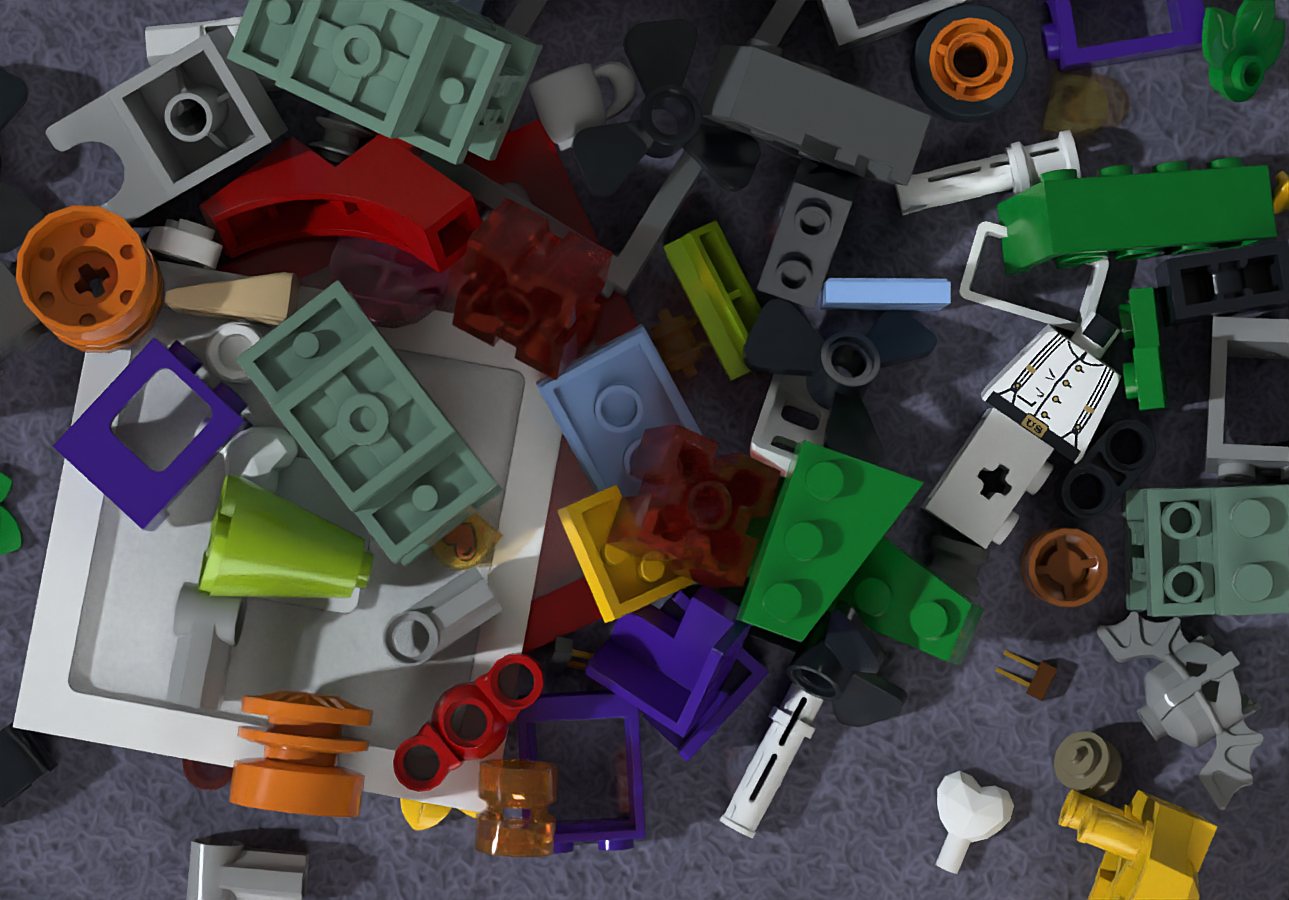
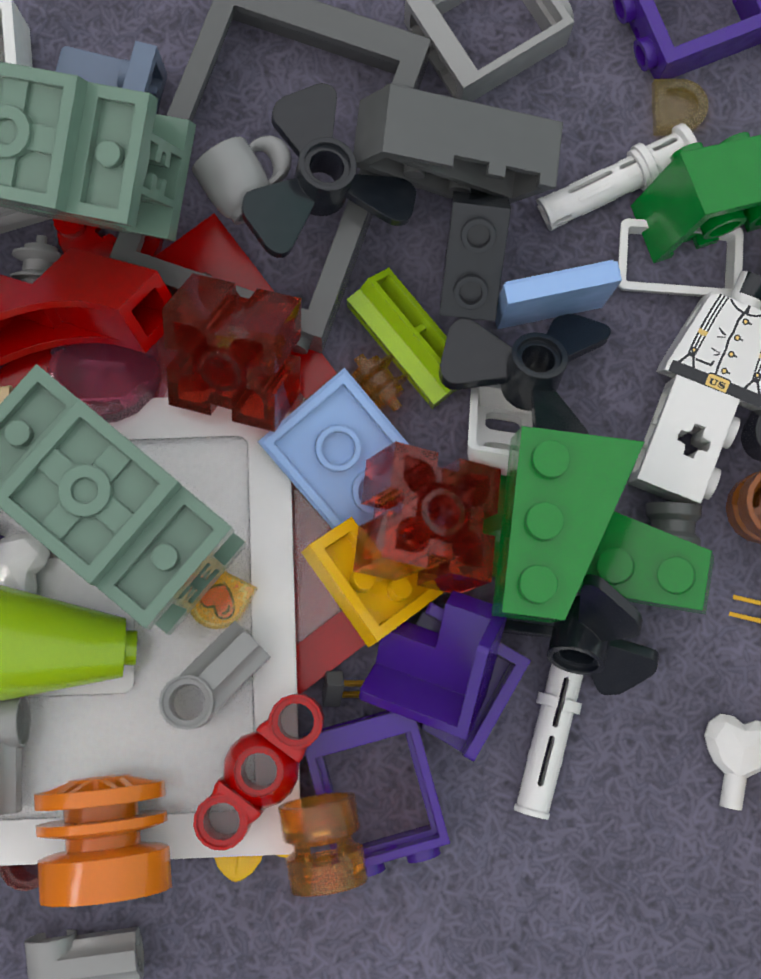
camera: 15 degrees left, 5 degrees down
(987, 34) = (590, 59): wheel -> none

